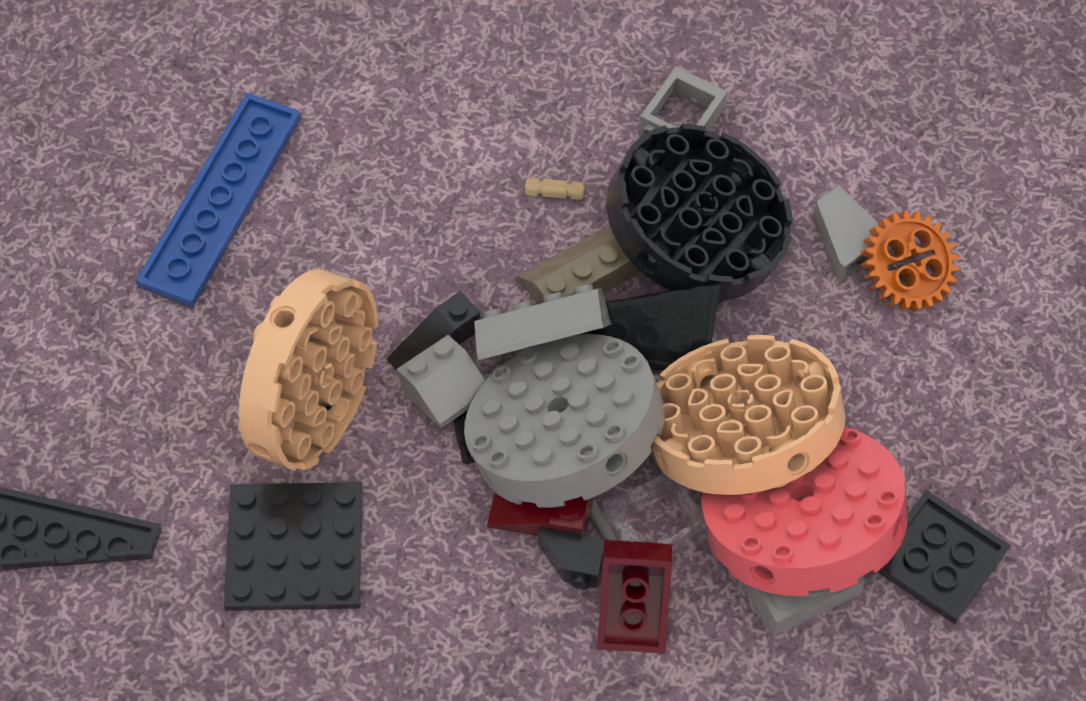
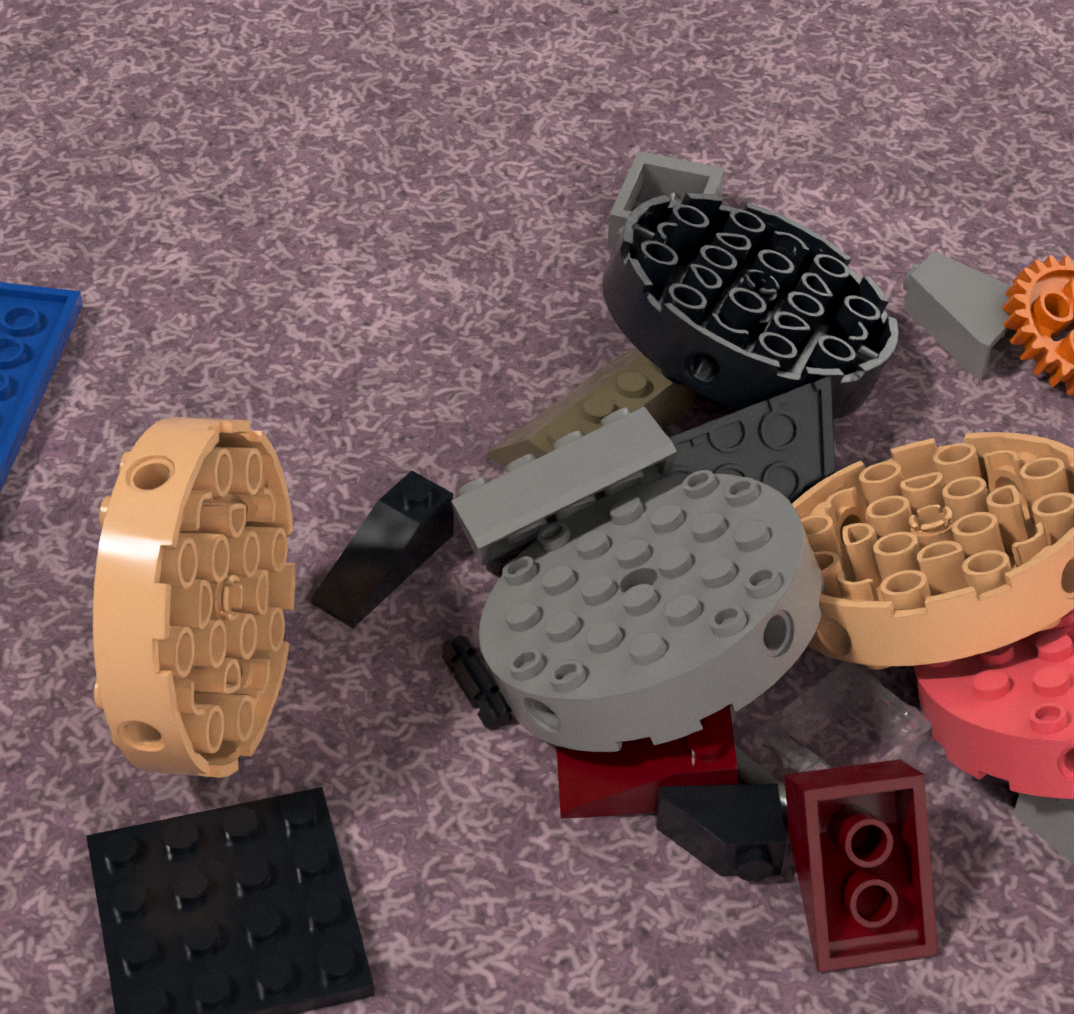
camera: 15 degrees left, 15 degrees down
(441, 380) = (416, 606): light grey slope -> none
(554, 188) = (507, 331): tan axle -> none

